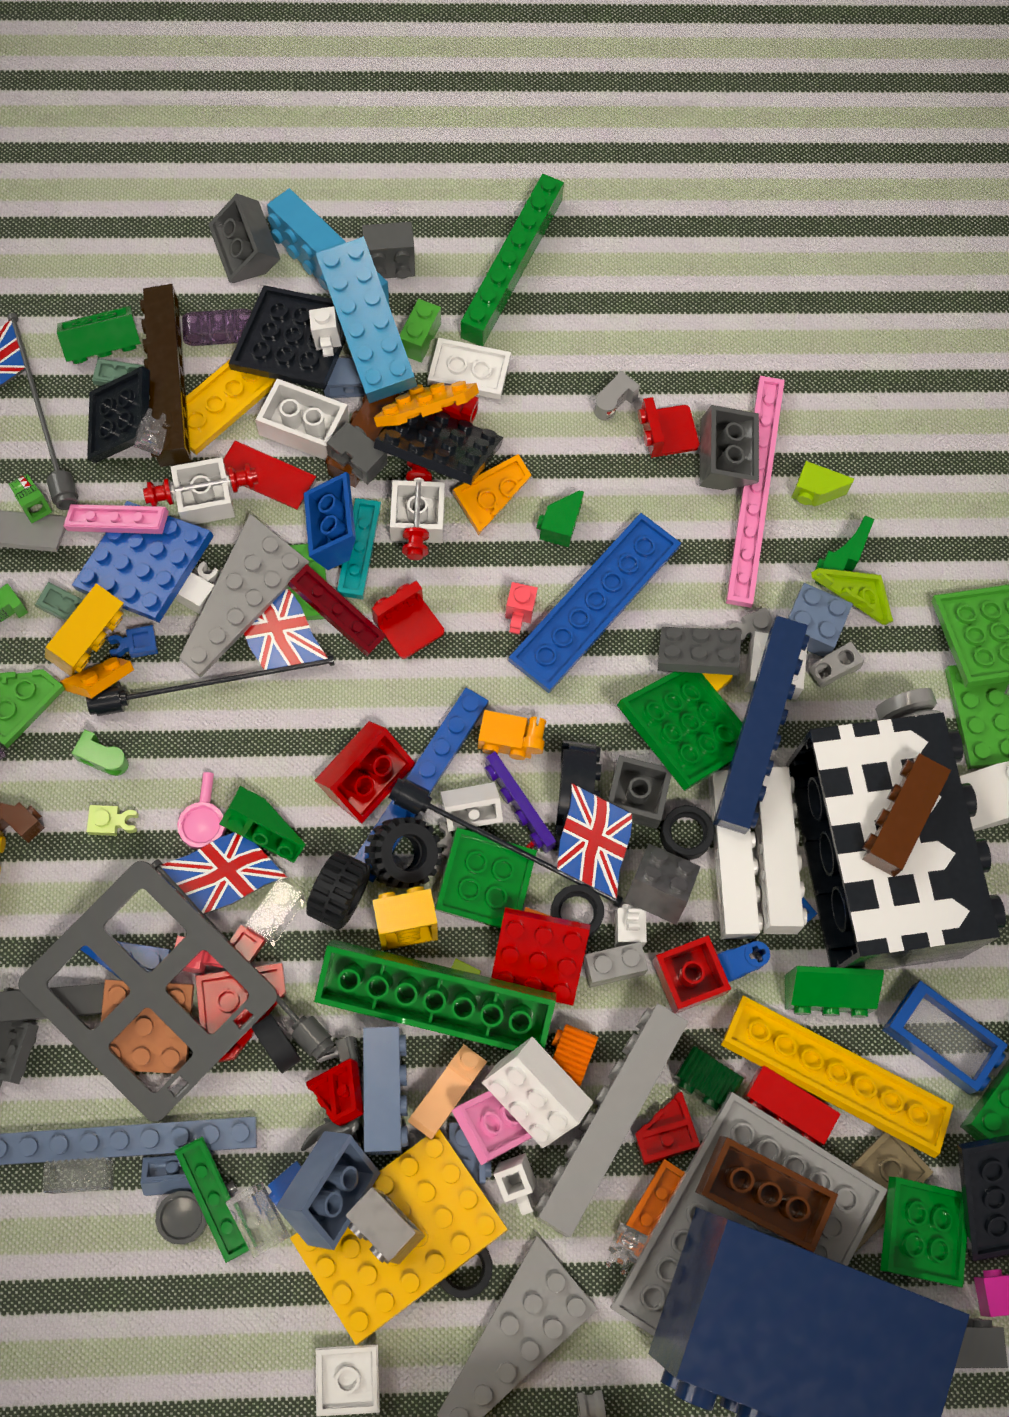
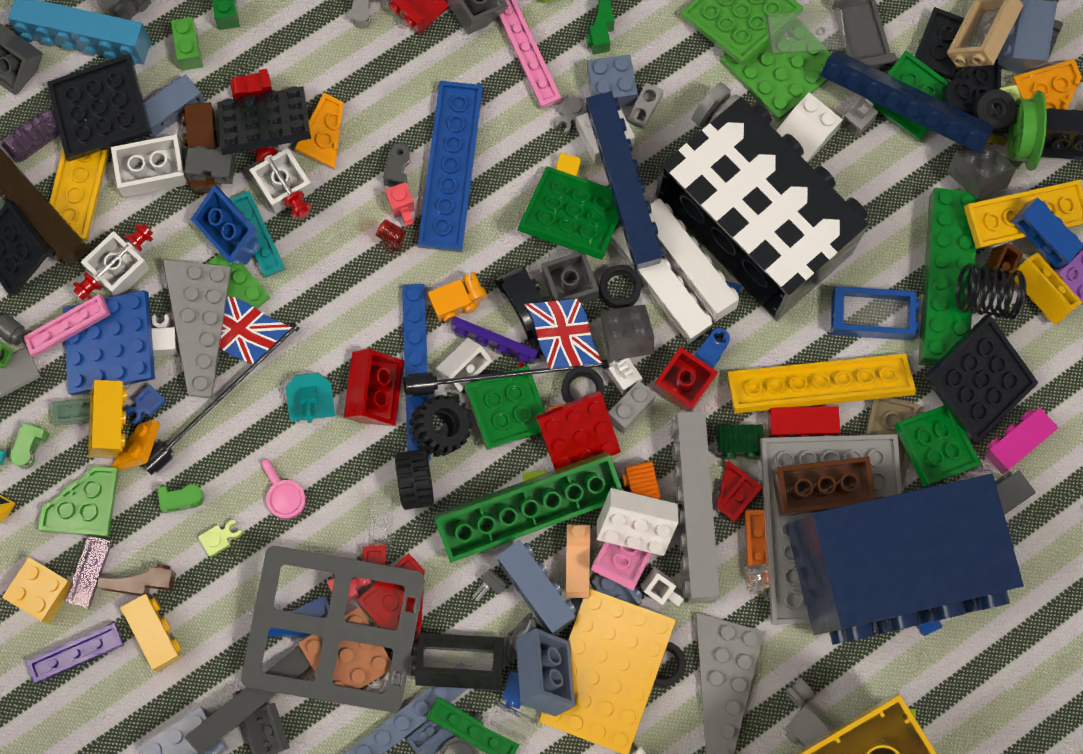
camera: 30 degrees left, 5 degrees up
(150, 435) = (52, 248): clear plate -> none
(222, 876) = (327, 520): flag -> none
(251, 1113) = (458, 661): none -> pearl dark grey window
(260, 823) = (326, 470): green slope -> none
(275, 478) = (163, 220): red piece -> none
(276, 1043) = (443, 606): black tyre -> none
(296, 739) = (309, 397): none -> teal piece
(325, 329) = (123, 89): white brick -> none
(336, 610) = (274, 288): dark red plate -> none
(339, 1092) = (507, 608): red wing -> none
(366, 319) = (148, 62): dark azure brick -> none
(385, 1226) = (597, 668): flat silver brick -> none
(405, 918) = (474, 467): yellow brick -> none
(407, 620) = (328, 264): red bracket -> none
(425, 402) = (233, 96): light orange plate -> none
(470, 363) = (242, 49): white plate -> none
(486, 631) = (391, 236): none -> clear red piece
(540, 567) = (397, 161): none -> dark grey leg
(560, 519) = (386, 122): green slope -> none
(699, 650) = (547, 155): dark grey plate -> none
(833, 990) = (783, 330): green slope -> none
(861, 589) = (628, 40): lime wing -> none
(906, 814) = (760, 182): reddish brown brick -> none

